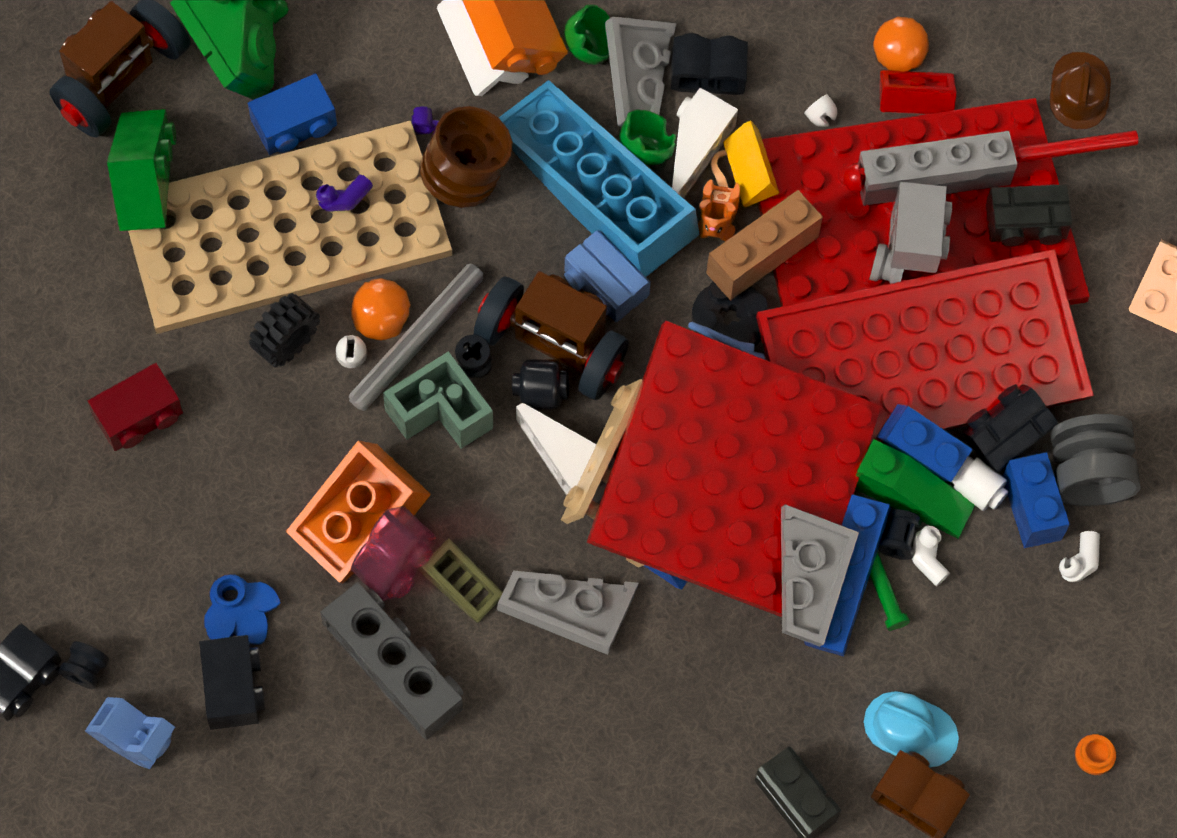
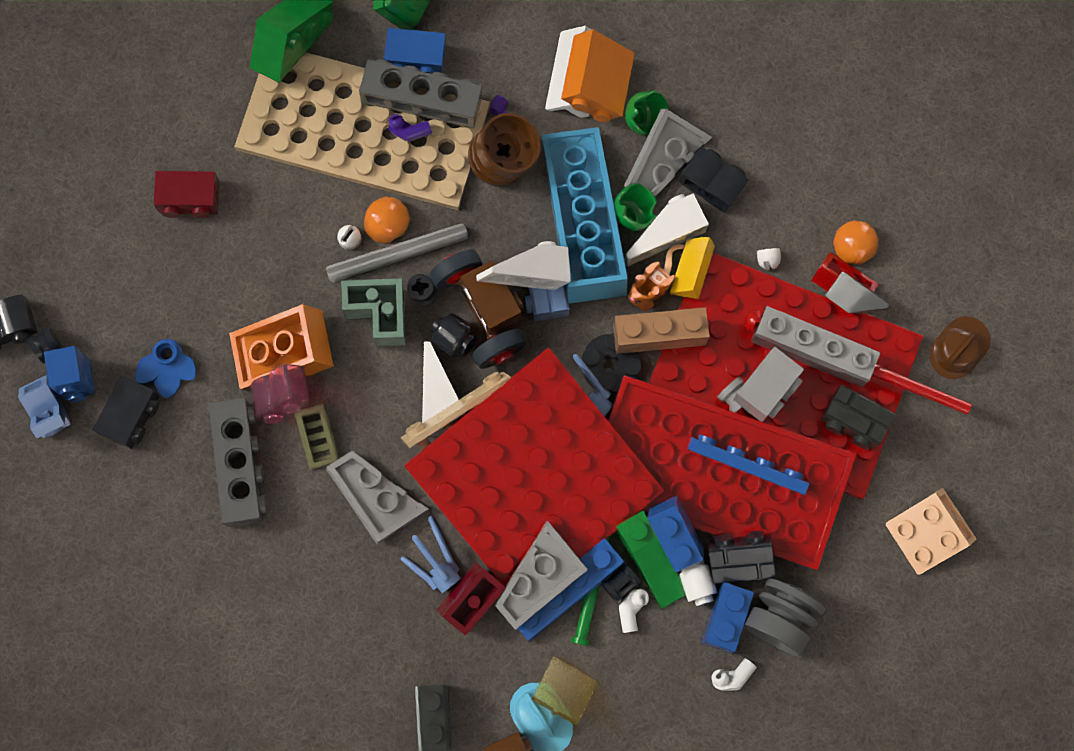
camera: 30 degrees right, 10 degrees up
(139, 673) = (69, 373): none -> blue brick
(284, 330) = (310, 198): black tyre -> none
(324, 165) = (431, 105): none -> dark grey brick
(593, 252) = (539, 267): none -> white slope
(703, 641) = (443, 575): none -> medium blue plant
(752, 643) = (470, 599): none -> dark red brick
(918, 679) = (564, 690): none -> clear yellow piece
(940, 95) = (854, 296): none -> slope
(966, 321) = (761, 468): none -> blue plate

